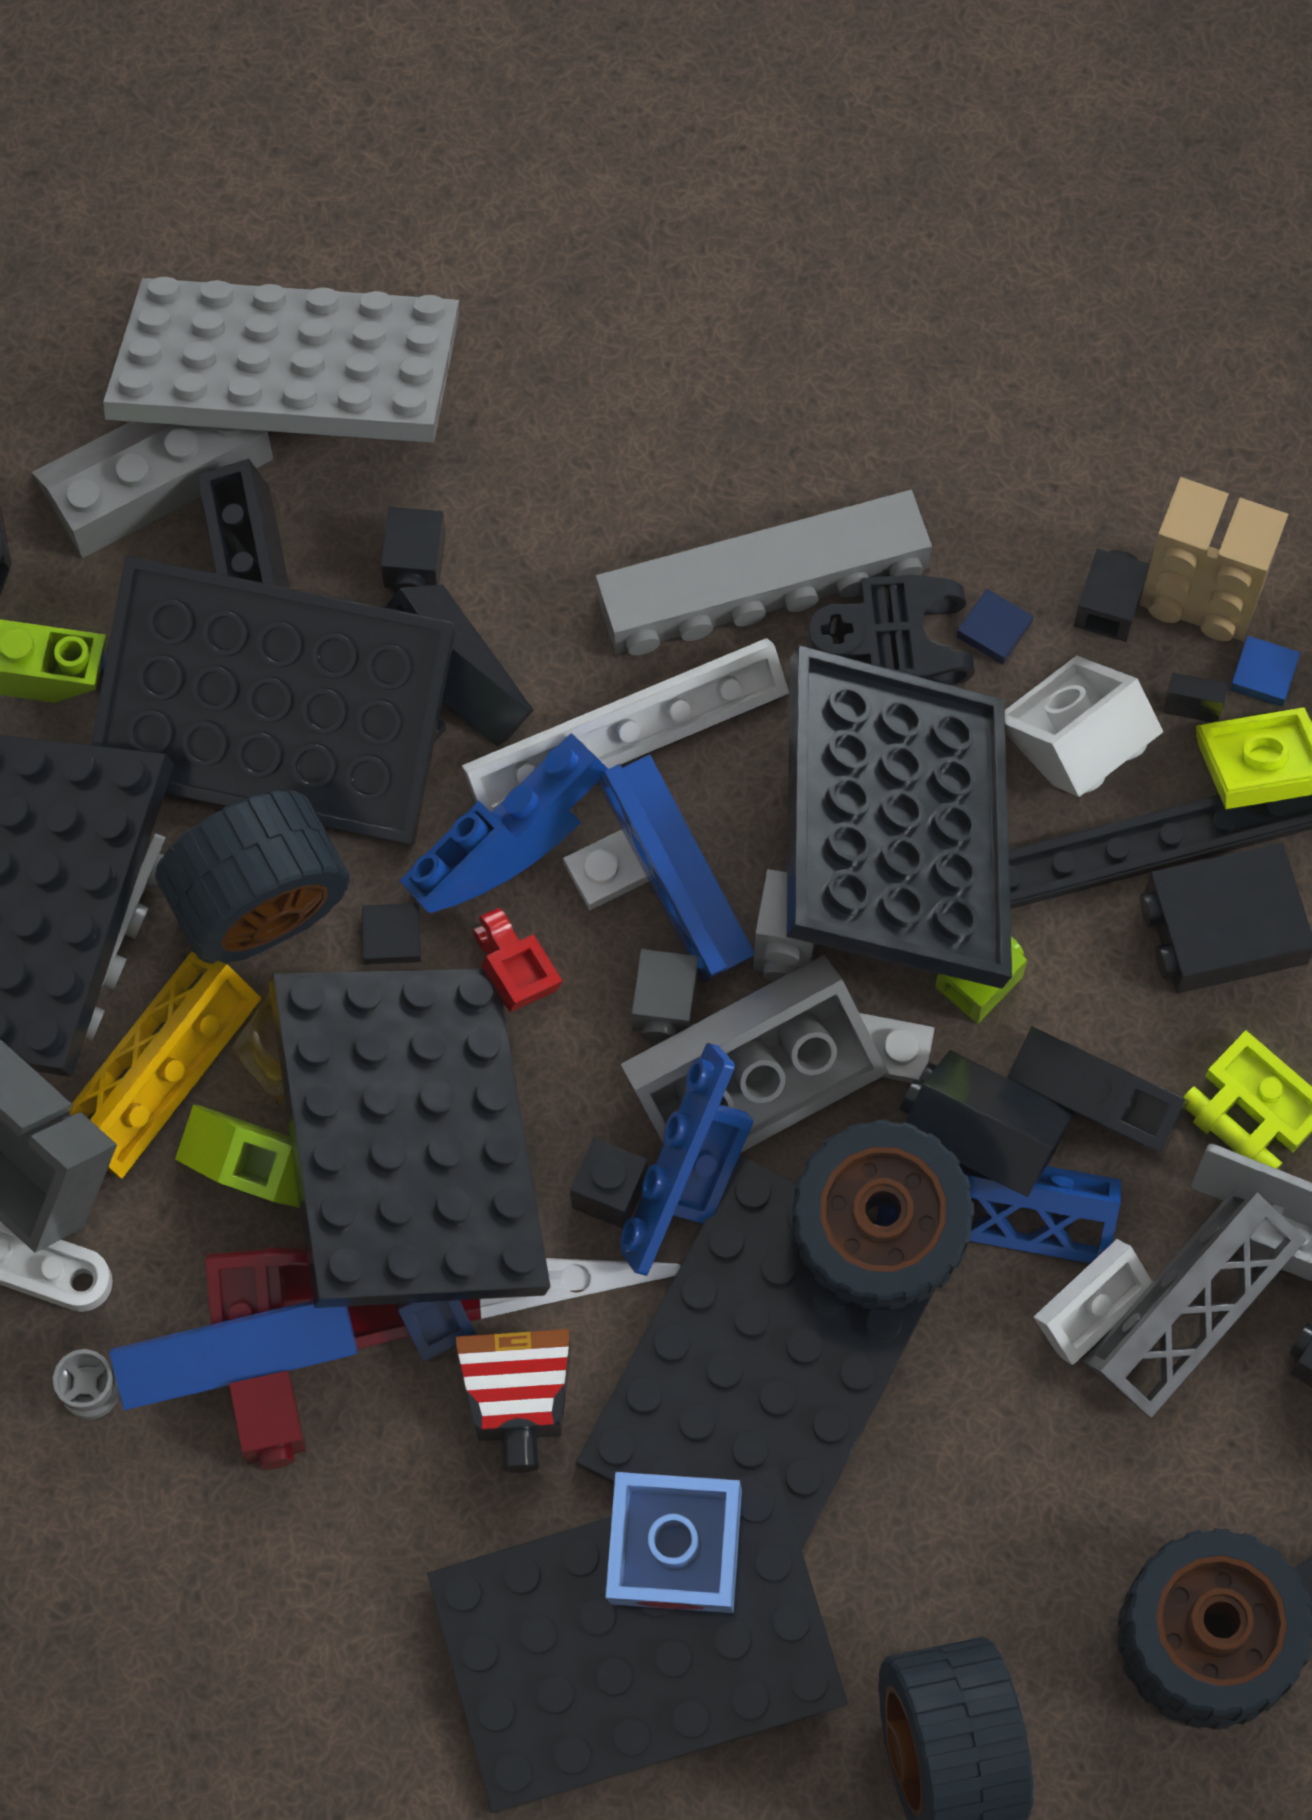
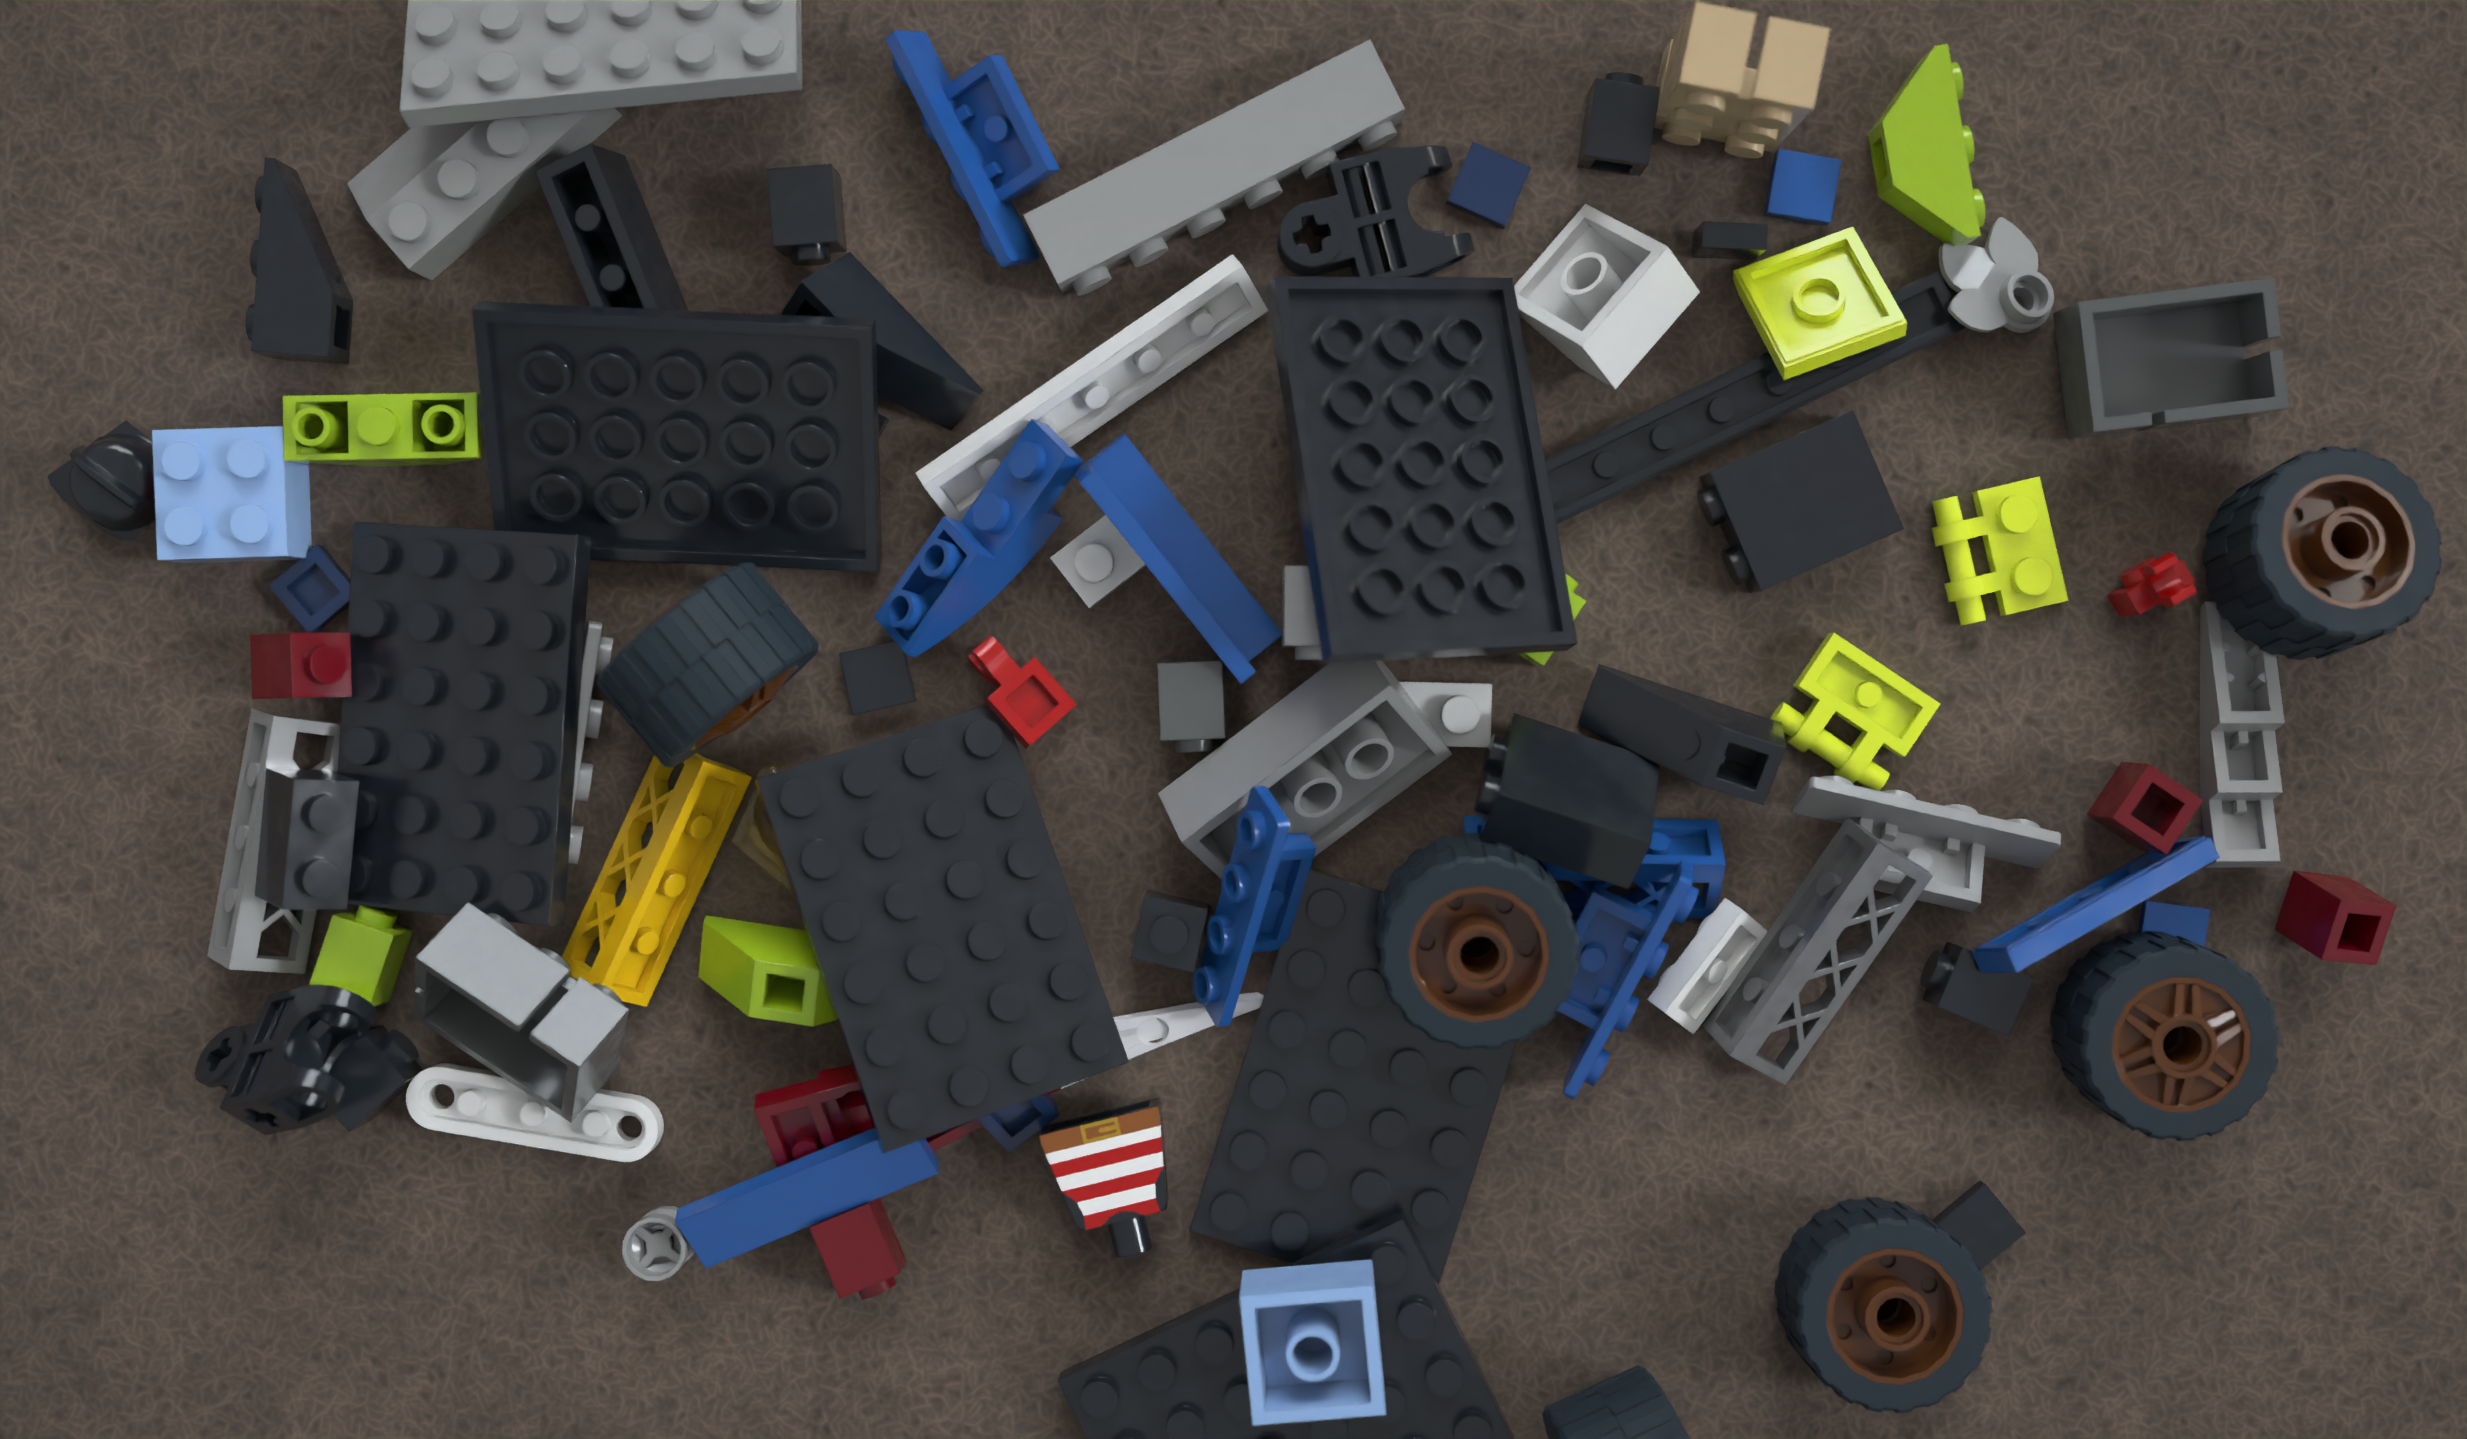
camera: 10 degrees left, 20 degrees up
(575, 517) = (984, 136): none -> blue bracket
(996, 1277) = (1614, 952): none -> blue bracket

